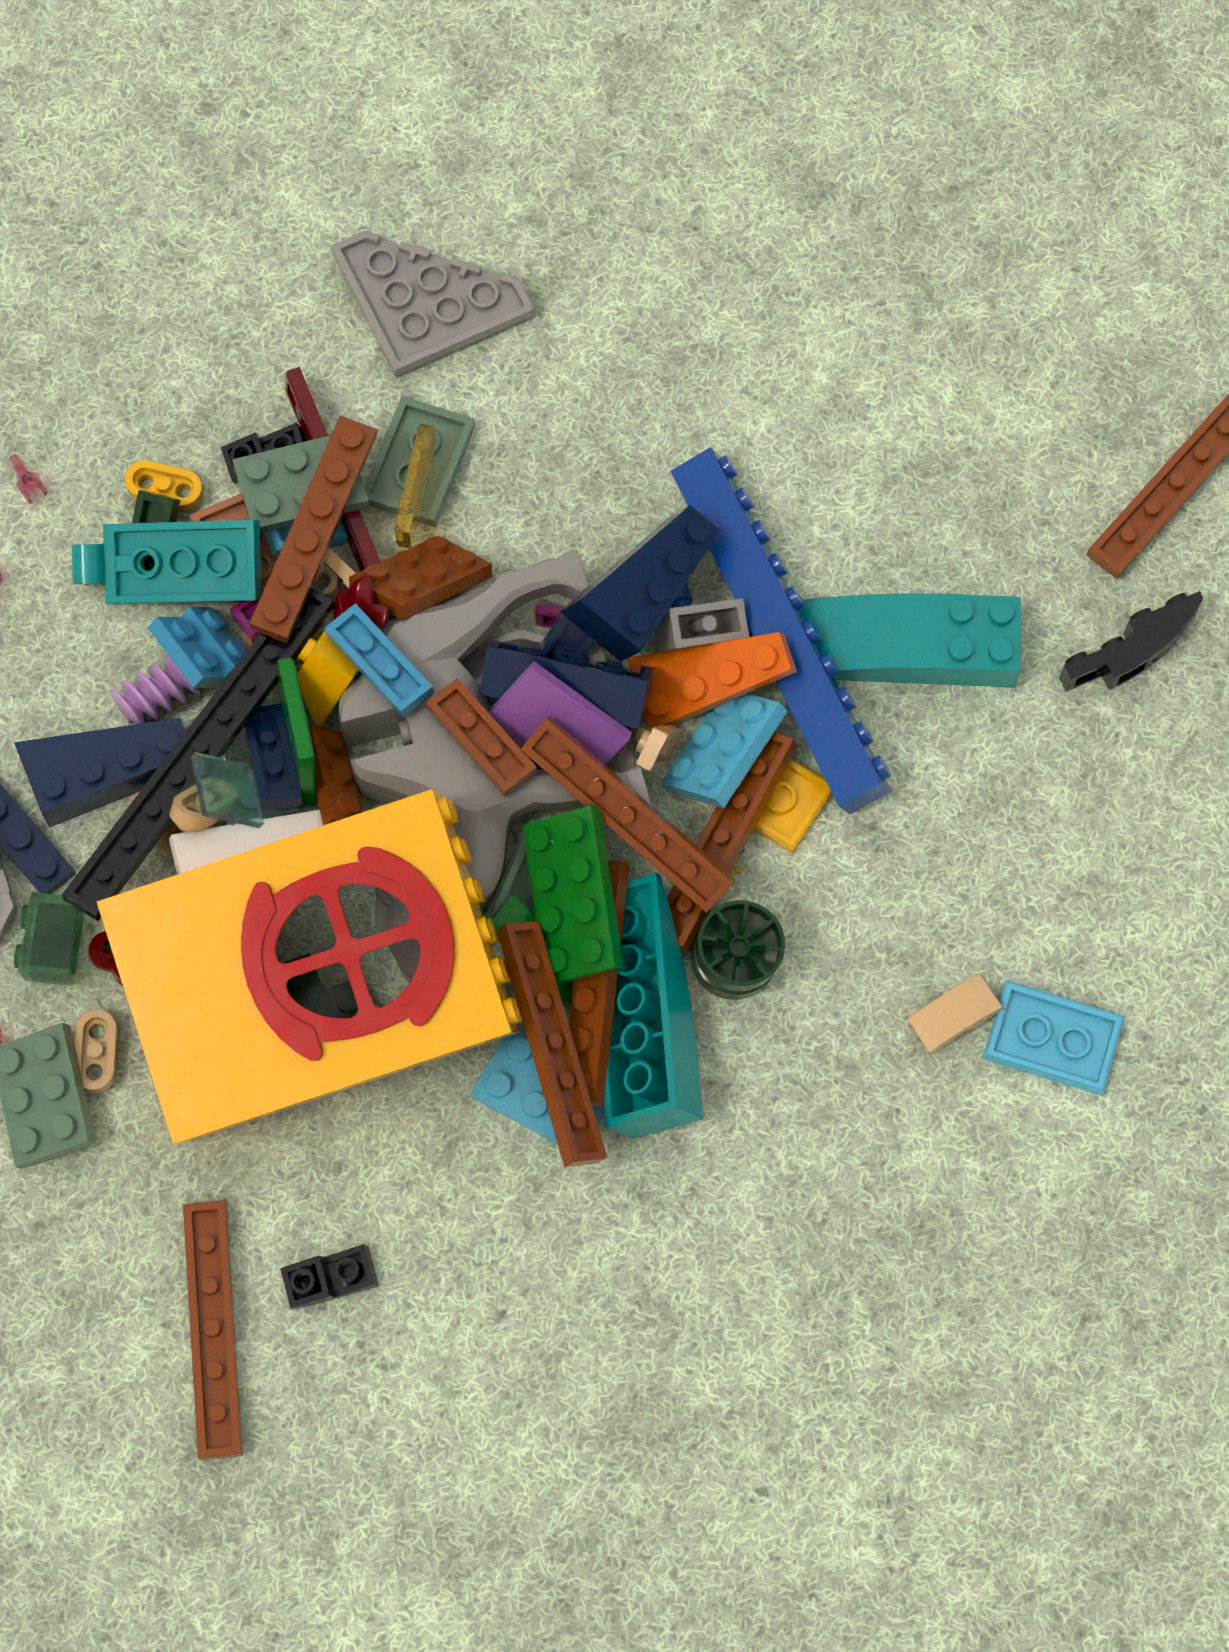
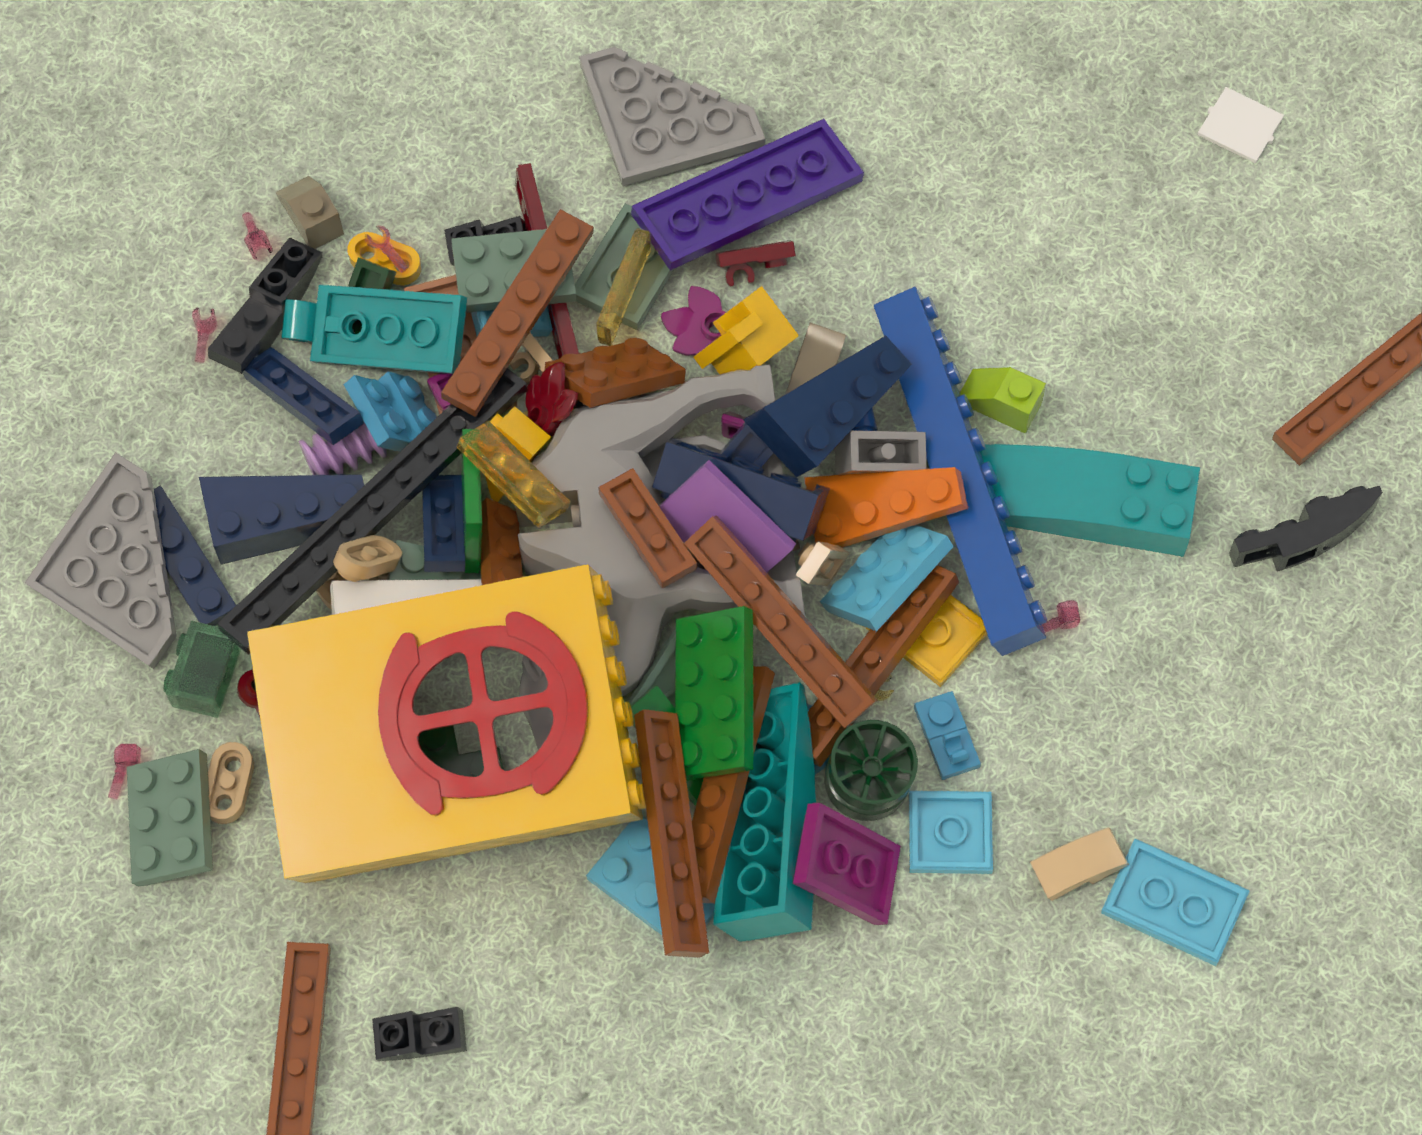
camera: 10 degrees right, 5 degrees down
(50, 558) = (262, 315): none -> black slope
(80, 445) = (311, 211): none -> dark tan slope
(105, 643) = (303, 396): none -> dark blue plate
(166, 476) = (387, 248): none -> hand
(227, 790) = (393, 546): clear light blue piece -> none
(337, 700) = (513, 474): none -> clear yellow plate
(379, 660) = (560, 442): dark azure plate -> none
(490, 511) = (693, 322): none -> magenta plate
(525, 370) = (747, 194): none -> dark purple plate
(551, 521) = (749, 335): none -> yellow plate
(559, 429) = (771, 254): none -> dark red plate
(620, 532) = (817, 354): none -> dark tan slope
(728, 1048) = (847, 864): none -> magenta plate
(806, 902) = (947, 735): none -> dark azure plate
(814, 546) = (1005, 395): none -> lime slope
(824, 999) = (950, 832): none -> medium azure tile
(908, 763) = (1067, 617): none -> clear pink hand
(1012, 231) = (1240, 125): none -> white piece

